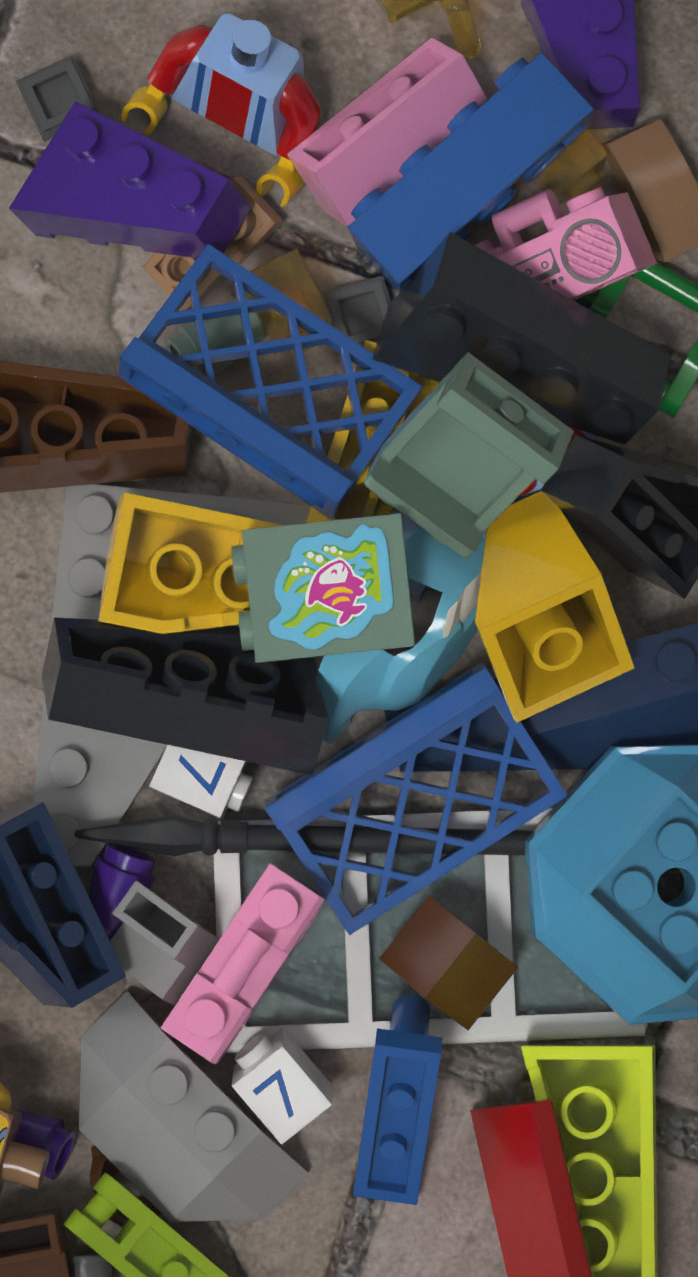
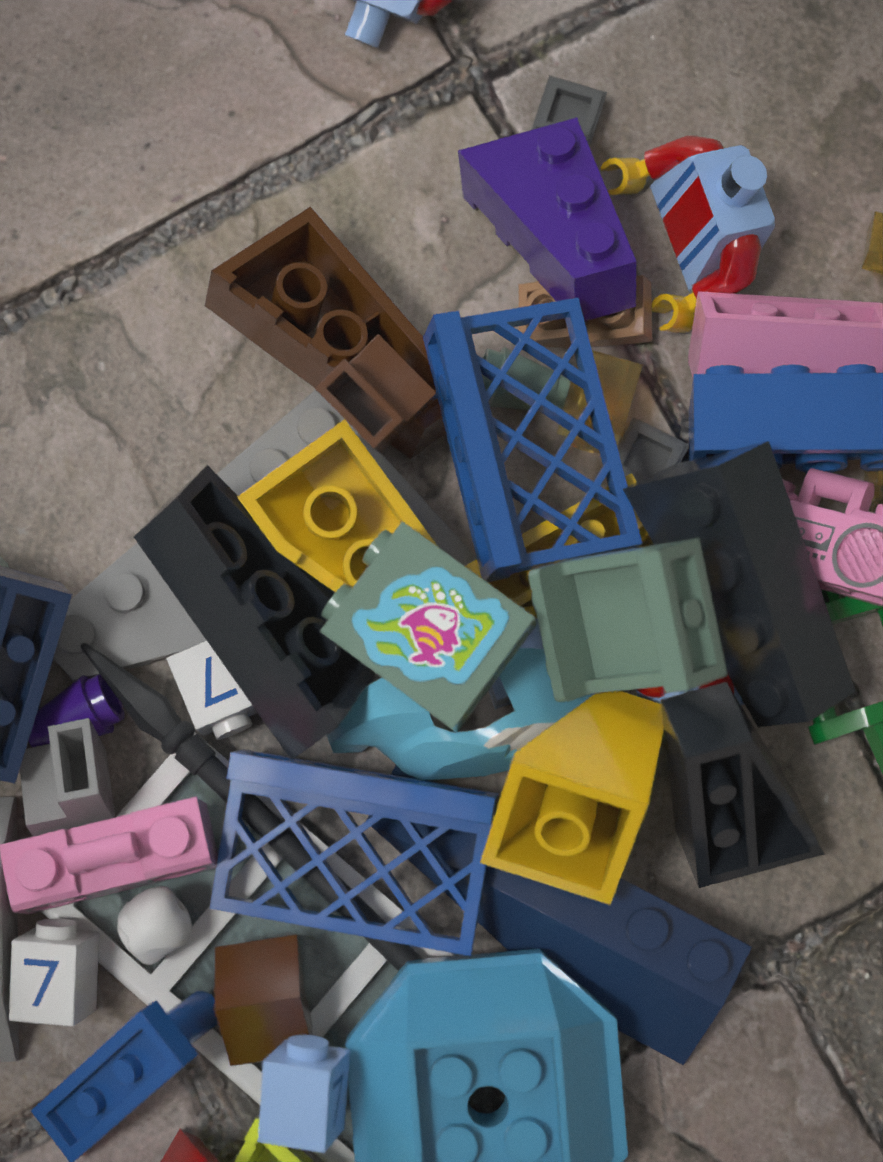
camera: 40 degrees right, 5 degrees down
(131, 451) = (377, 393): none -> reddish brown piece
(320, 982) = (154, 924): none -> white piece
(540, 997) = (304, 1094): none -> light blue brick

